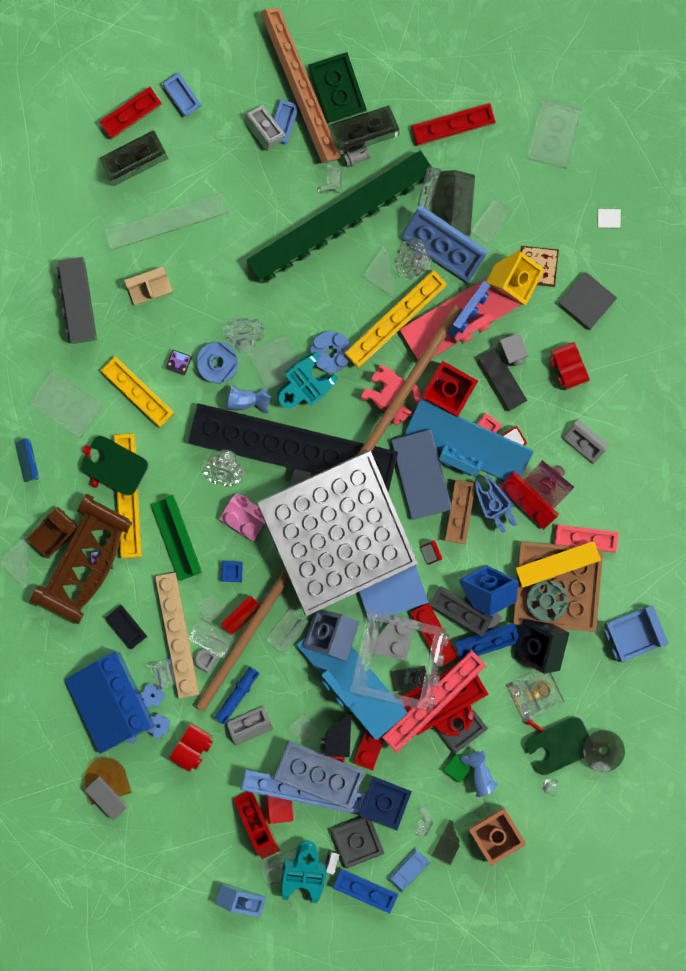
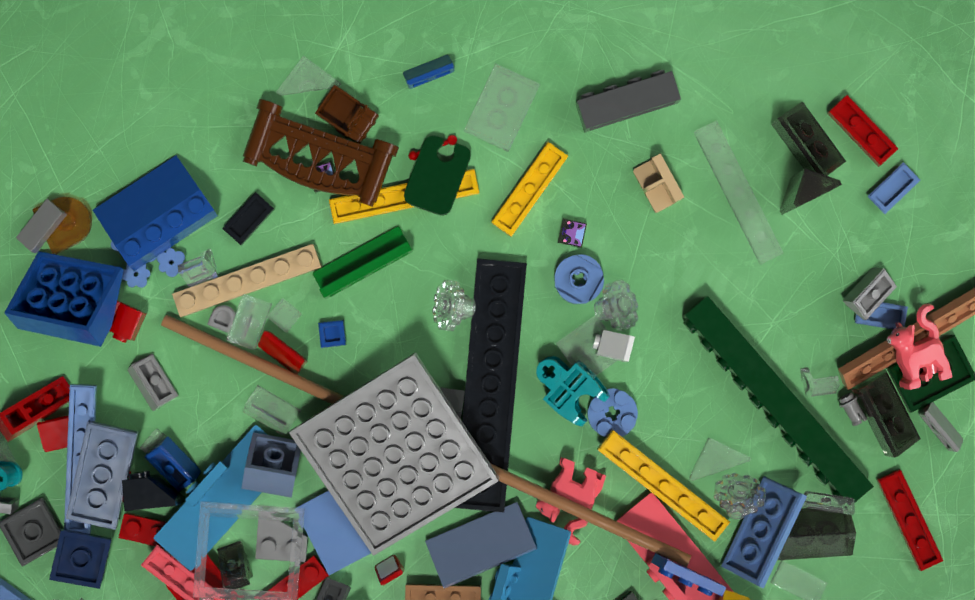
camera: 75 degrees right, 0 degrees up
(169, 783) = (67, 298): none -> blue slope
(170, 166) = (806, 187): none -> clear smoke slope
(242, 687) = (194, 366): blue pin -> none
(243, 516) = (399, 338): bright pink bracket -> none
(245, 399) = (539, 318): medium blue animal -> none
(275, 341) = (613, 345): none -> white slope
(319, 91) = (924, 353): none -> coral animal
(319, 717) = (173, 464): none -> blue slope
(382, 87) = (941, 427): none -> light grey slope
(450, 388) = (589, 565): red slope -> none

